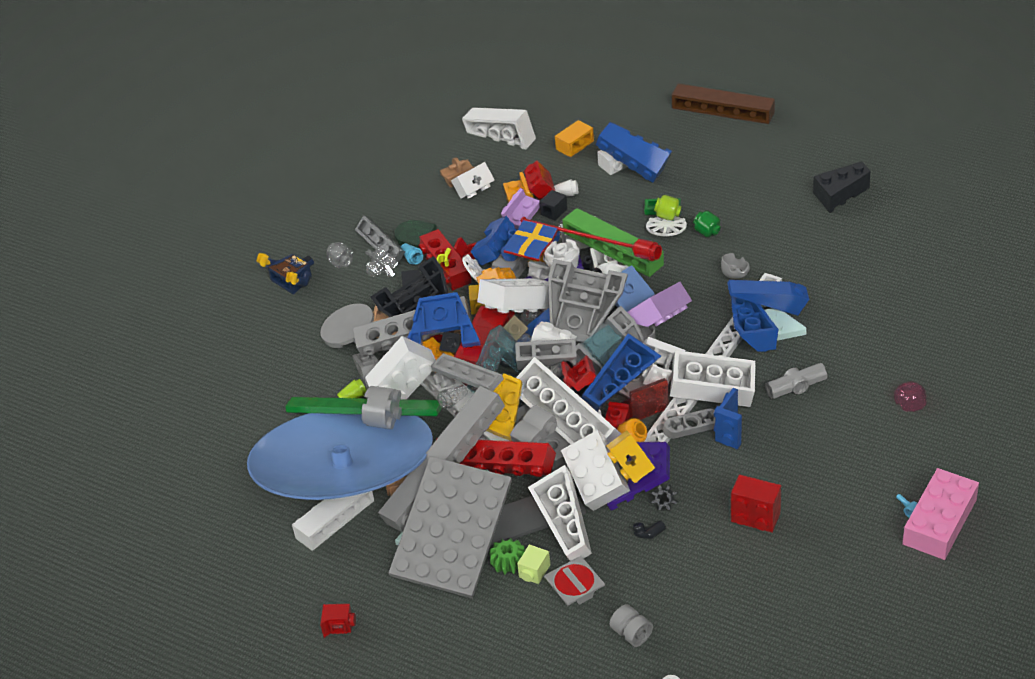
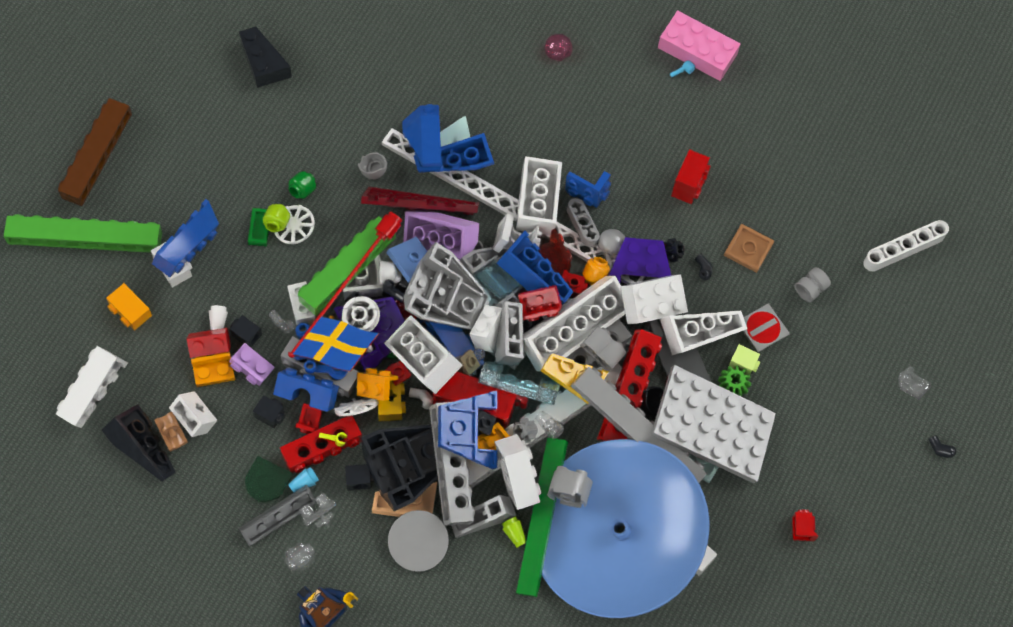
camera: 100 degrees left, 25 degrees up
(459, 146) = (134, 437): none -> black wedge
(466, 372) = (546, 400): light grey tile -> none
(475, 225) = (269, 411): none -> black brick
(638, 466) = (656, 264): yellow brick -> none
(643, 101) = (82, 233): none -> bright green brick
(676, 445) = (610, 241): none -> light grey hair
(678, 572) = (749, 248): none -> medium nougat tile
(697, 287) = (411, 201): none -> dark red wing
(796, 380) = (534, 132): light grey piece -> none

